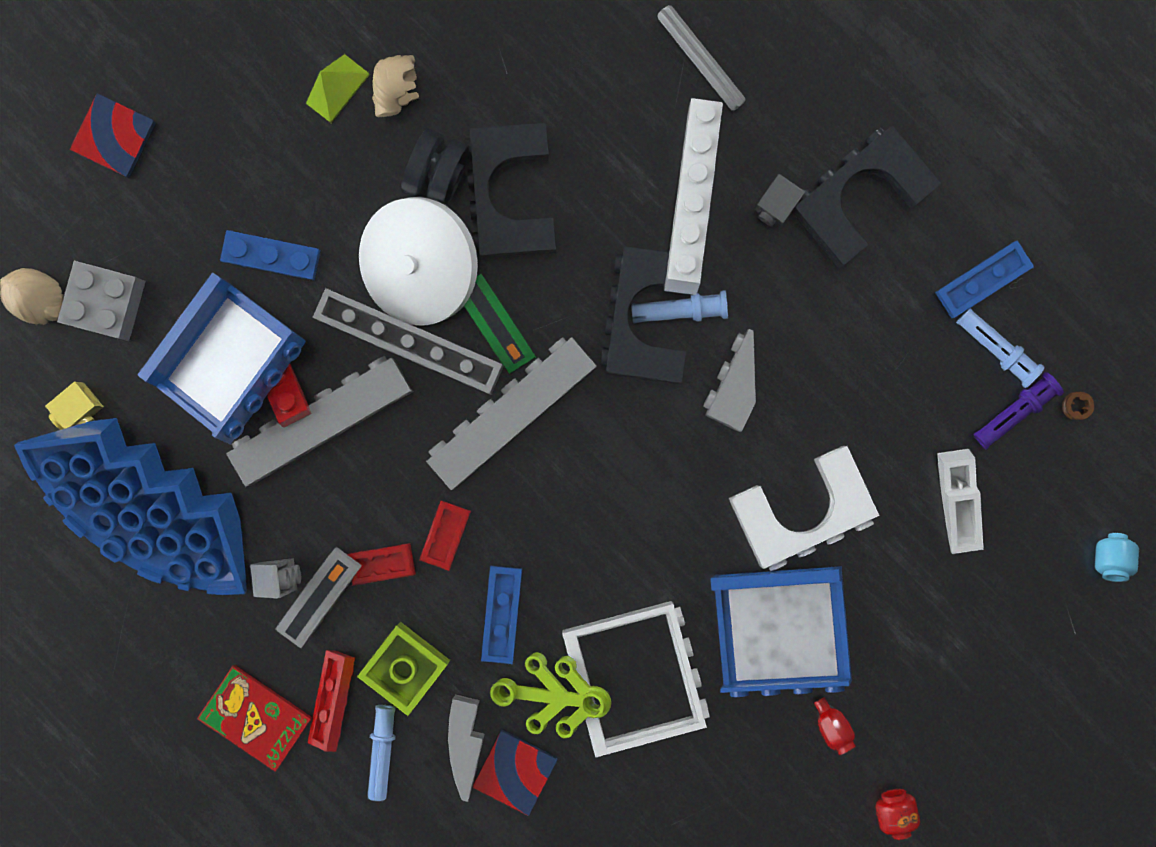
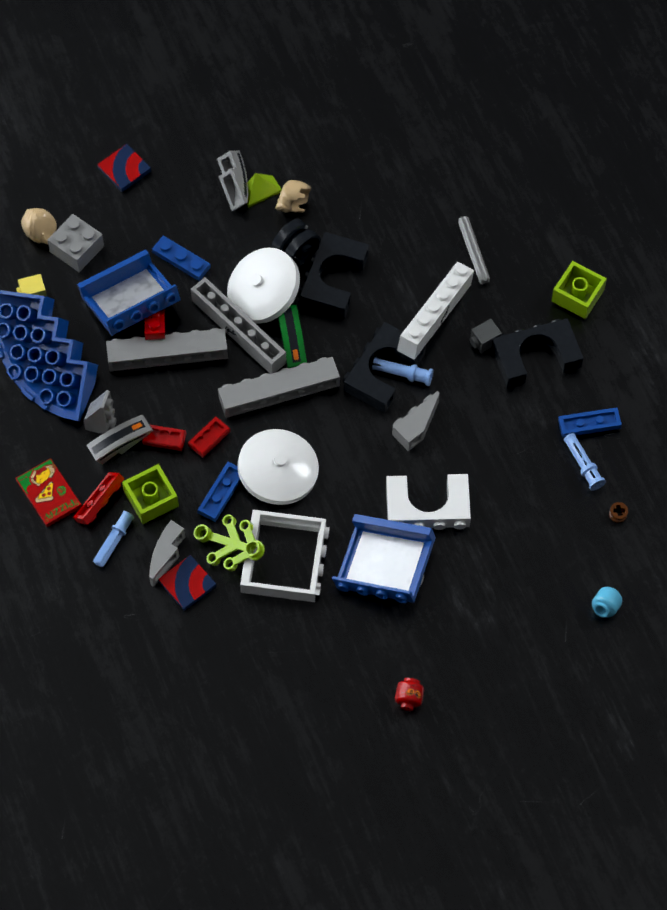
camera: 25 degrees right, 25 degrees down
(290, 90) = (234, 179): none -> light grey slope
(566, 543) = (278, 466): none -> white dish
(834, 727) = (392, 632): red plant -> none
(889, 66) = (578, 289): none -> lime brick
(961, 500) = (524, 536): white slope -> none
(1029, 398) = (589, 498): dark purple pin -> none

